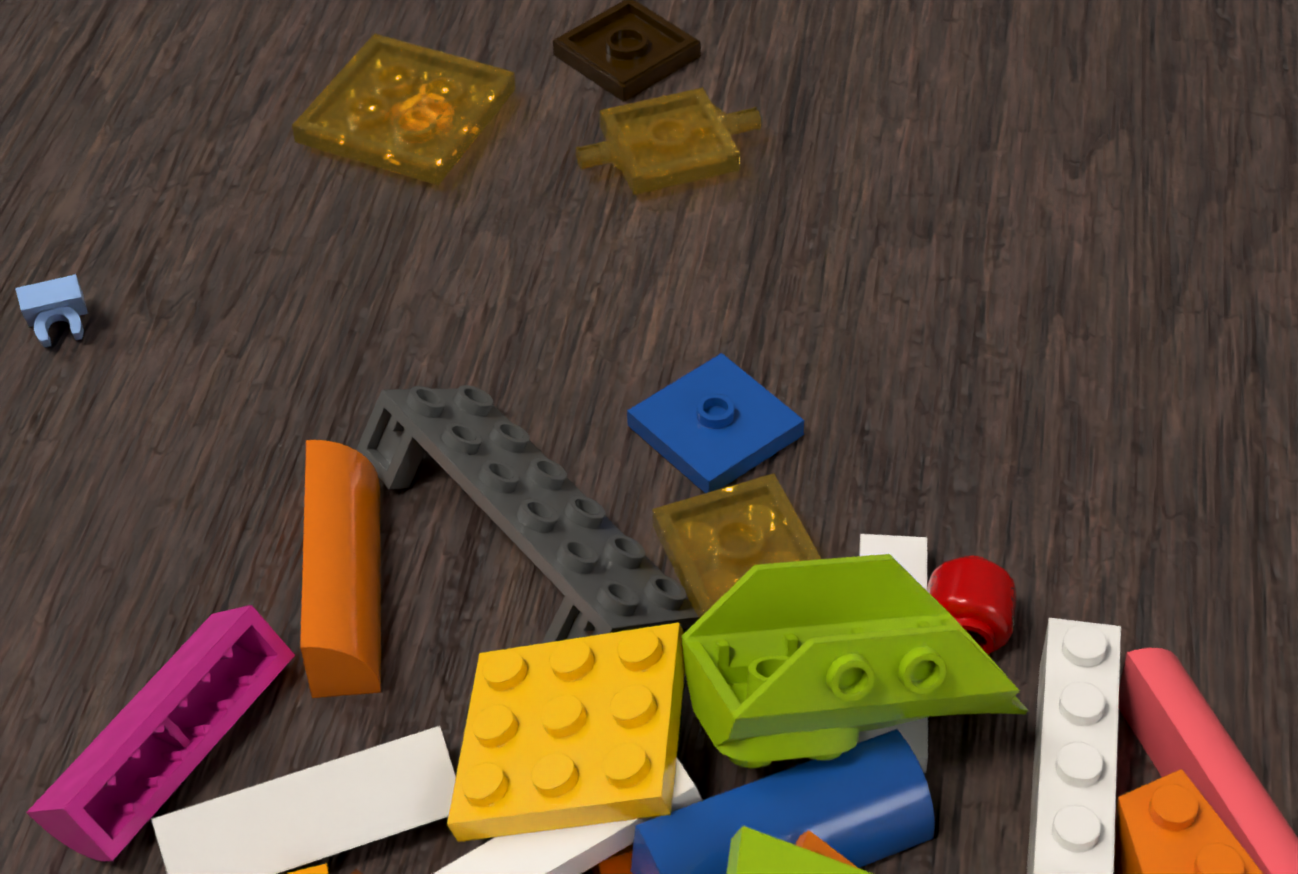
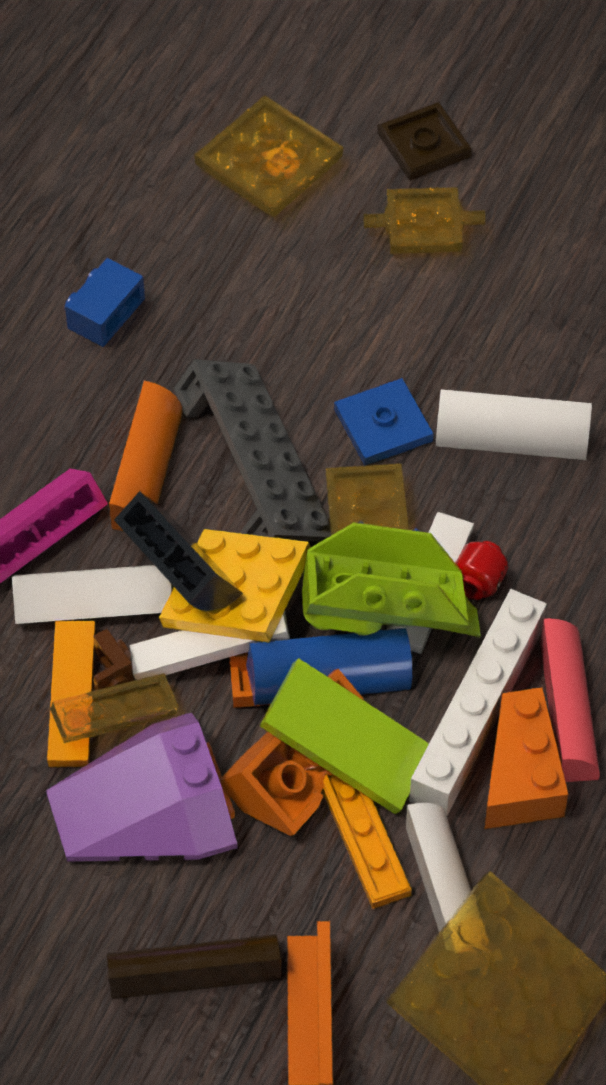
camera: 15 degrees right, 10 degrees up
(52, 302) = (24, 248): light blue tile -> none
(204, 350) = (104, 302): none -> blue brick
(454, 703) = (176, 555): none -> black brick
(926, 376) = (513, 424): none -> white brick

